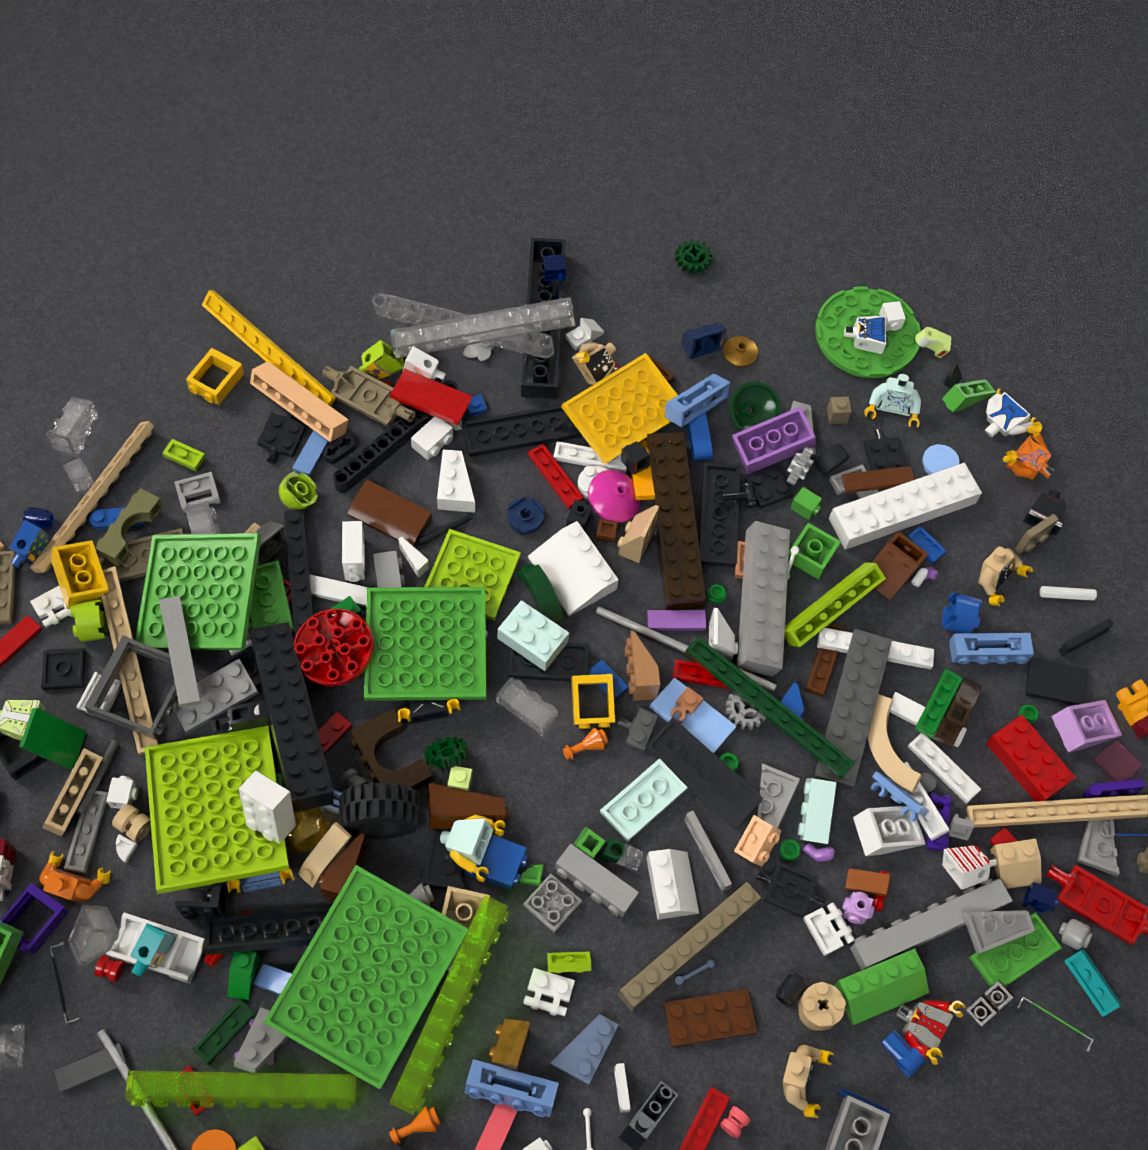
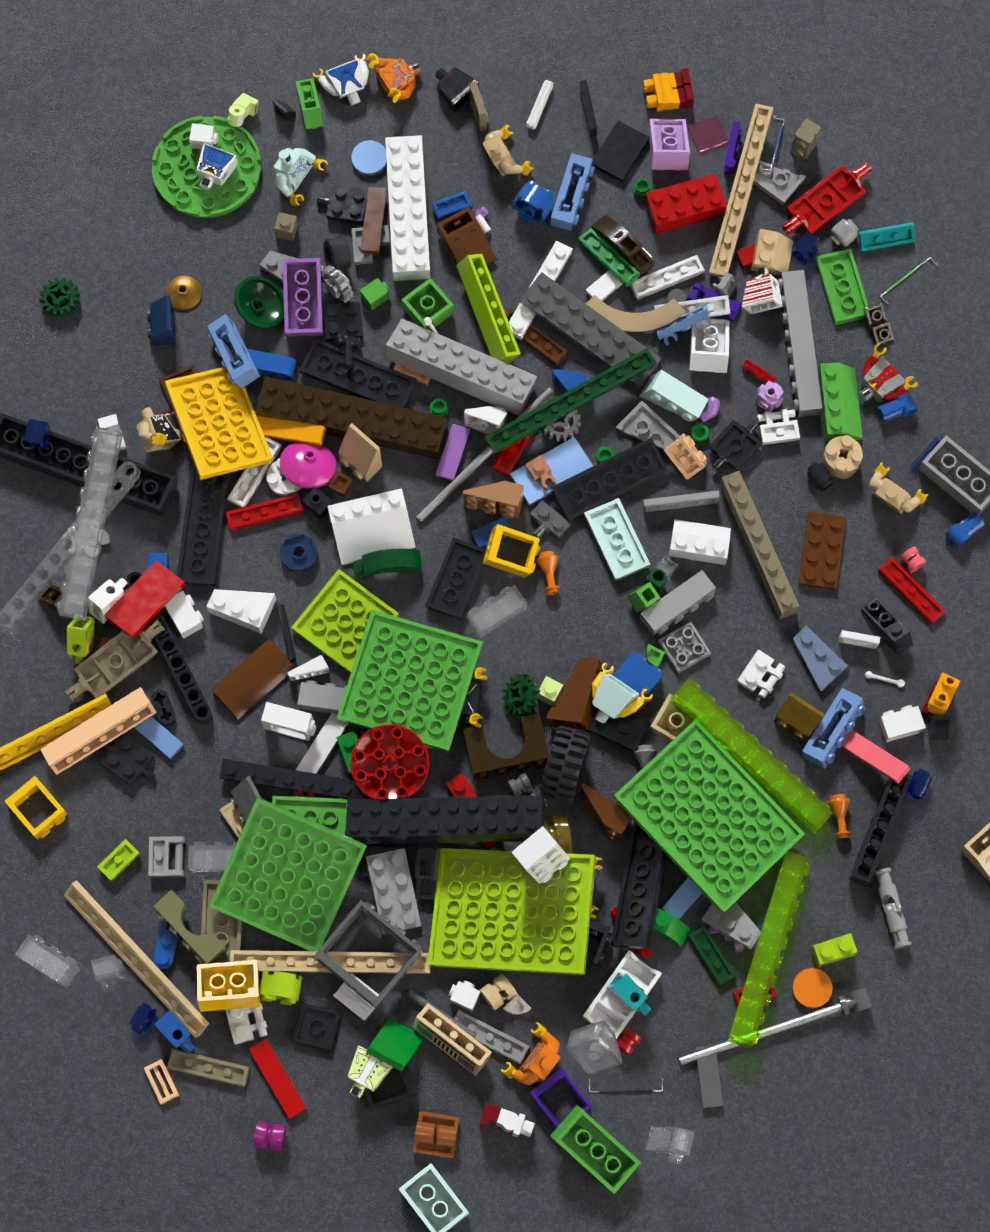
camera: 65 degrees left, 10 degrees up
(179, 652) = (348, 905): light grey tile -> none
(297, 491) = (204, 758): lime cylinder -> none
(324, 854) = (588, 825): tan slope -> none
(533, 635) = (433, 582): light aqua brick -> none
(569, 962) = (741, 649): lime plate -> none
(635, 457) = (277, 430): black brick -> none
(679, 980) = (777, 534): sand blue hinge -> none
(868, 882) = (749, 379): dark orange tile -> none
(995, 928) = (821, 292): light grey wing -> none

